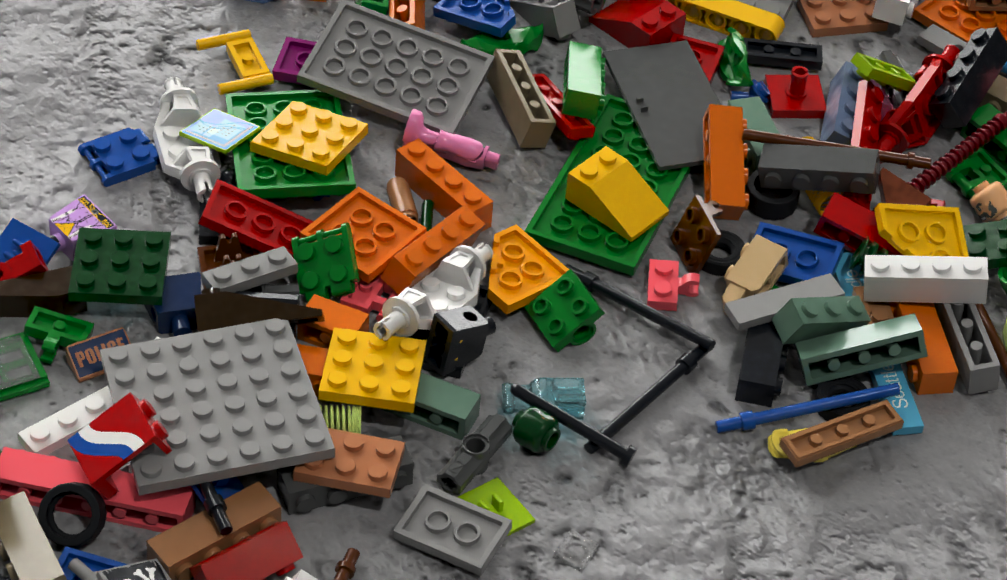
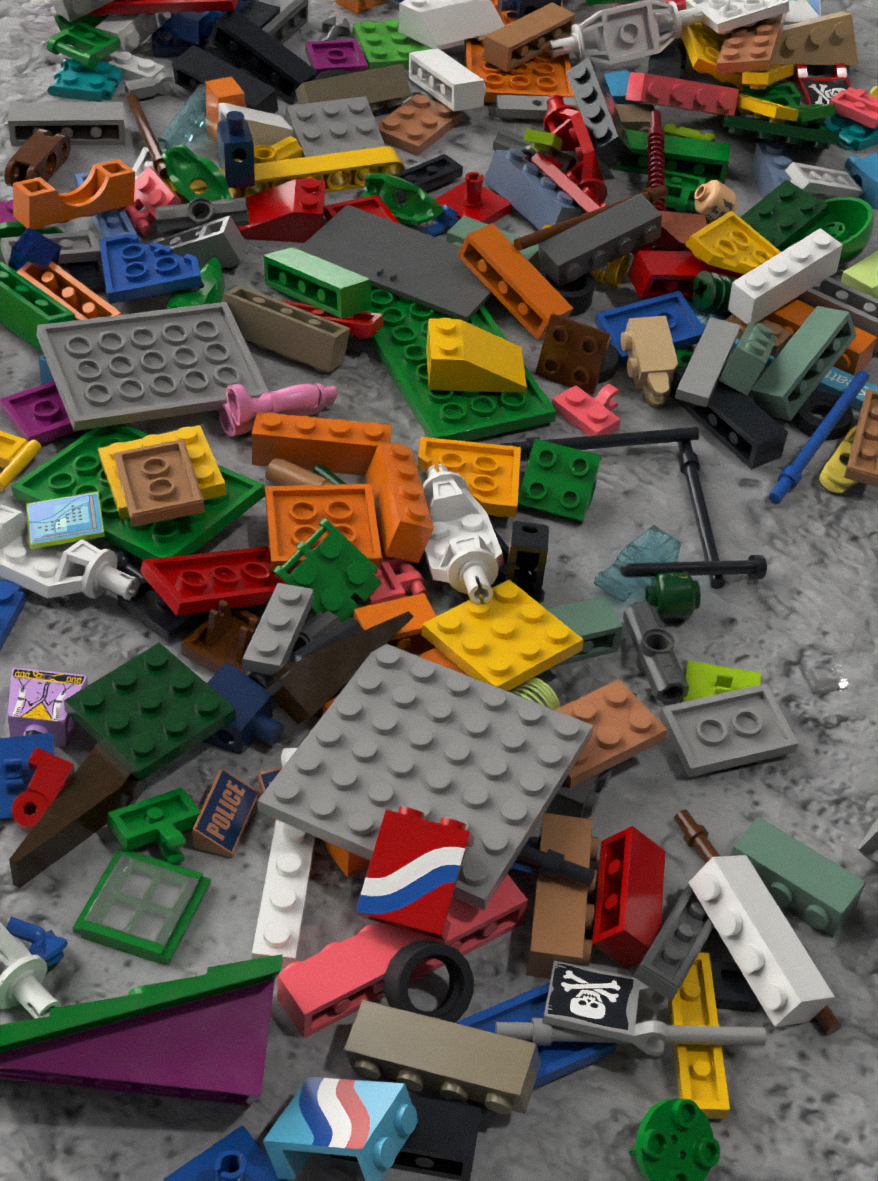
camera: 45 degrees left, 0 degrees up
(284, 139) = (158, 482): none -> medium nougat tile

